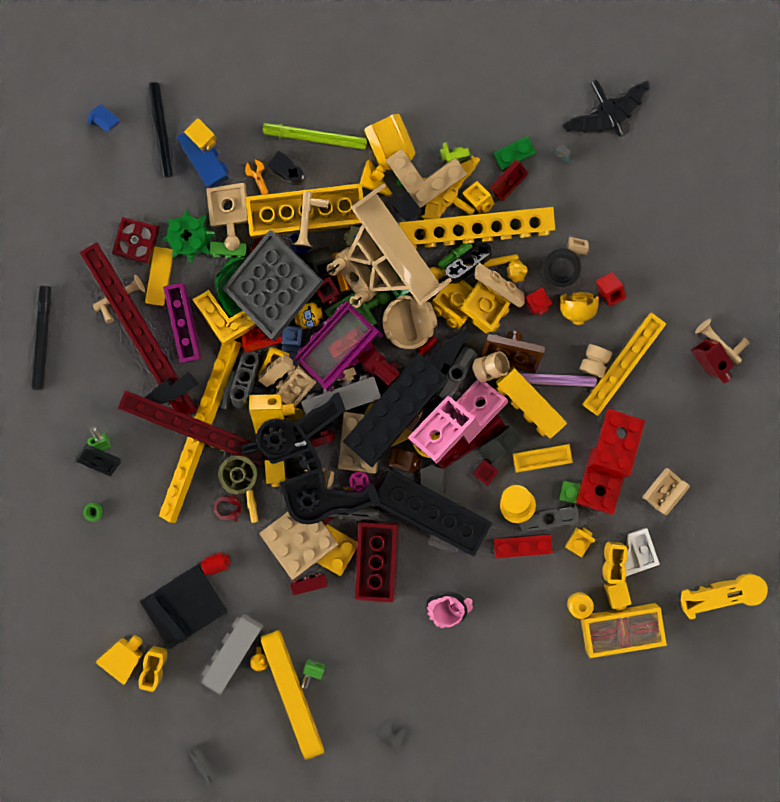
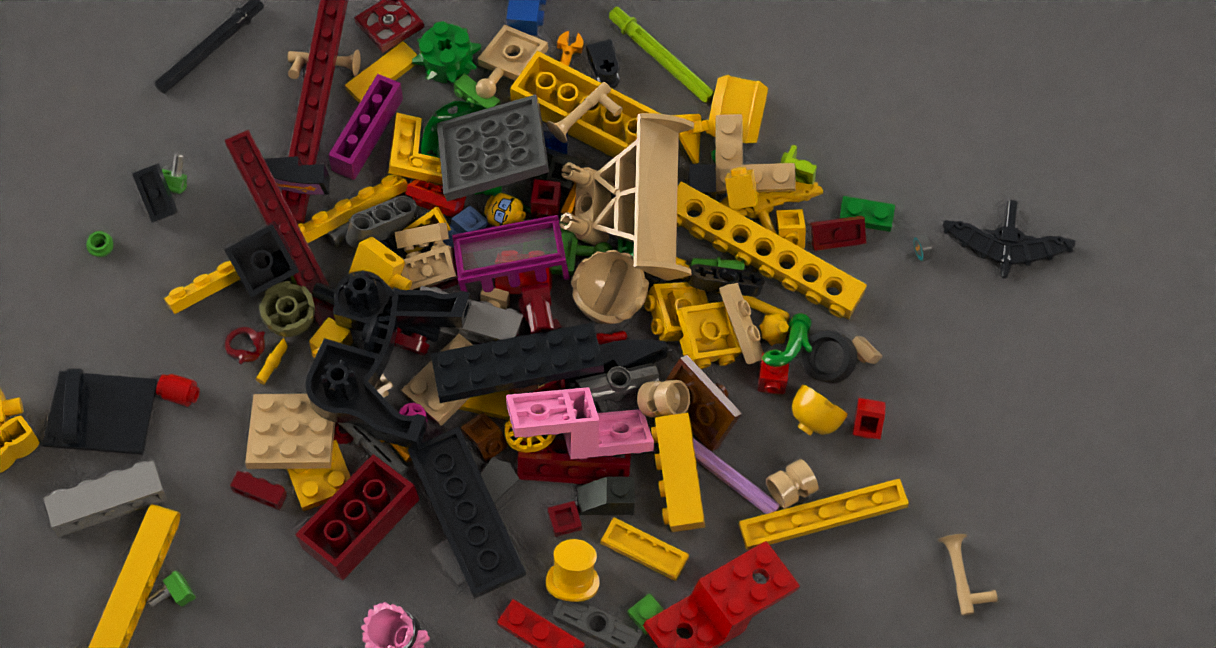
camera: 40 degrees right, 25 degrees down
(200, 460) = (262, 259): none -> black slope
(259, 661) = (126, 530): yellow piece -> none
(438, 200) = (741, 188): none -> yellow brick
(531, 260) = (798, 337): none -> green plant
(713, 359) = (938, 570): dark red torso -> none

